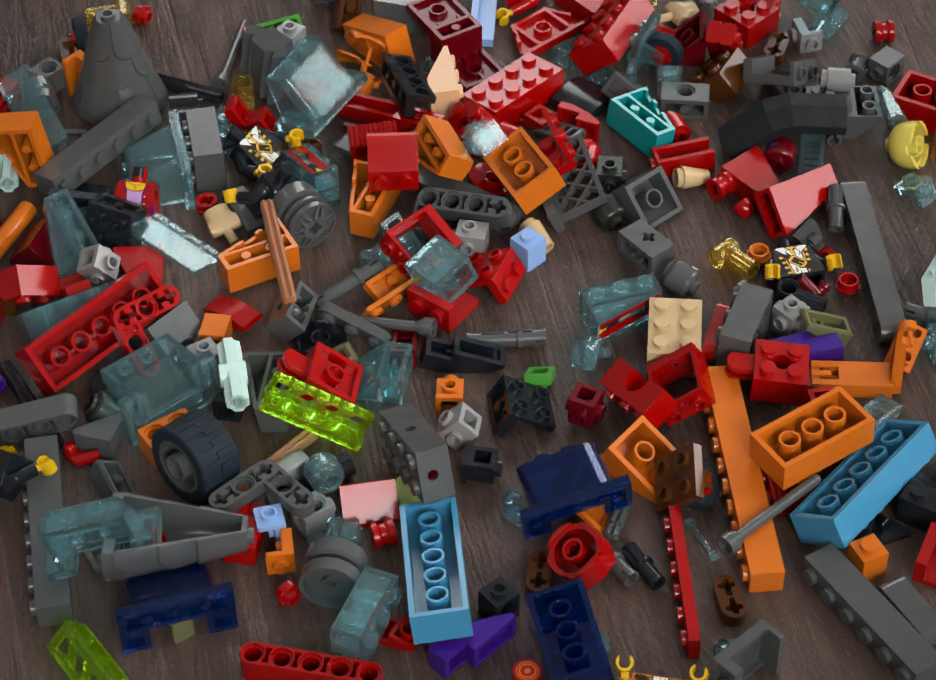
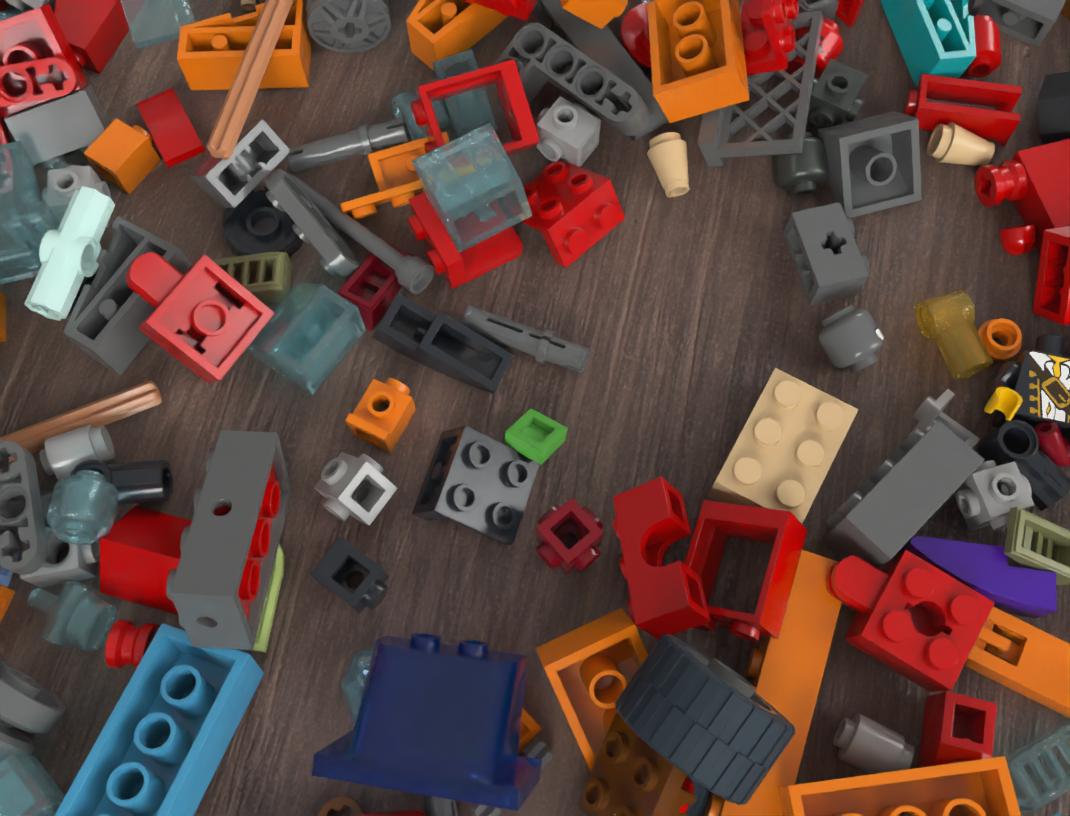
camera: 25 degrees right, 25 degrees up
(313, 414) = (142, 377): clear neon green fence -> none
(529, 247) = (642, 185): light blue brick -> none
(587, 351) = (627, 429): clear light blue piece -> none
(617, 304) = (725, 352): clear light blue wedge -> none
(698, 418) = (704, 719): none -> black wheel
(709, 345) = (855, 470): red beam -> none

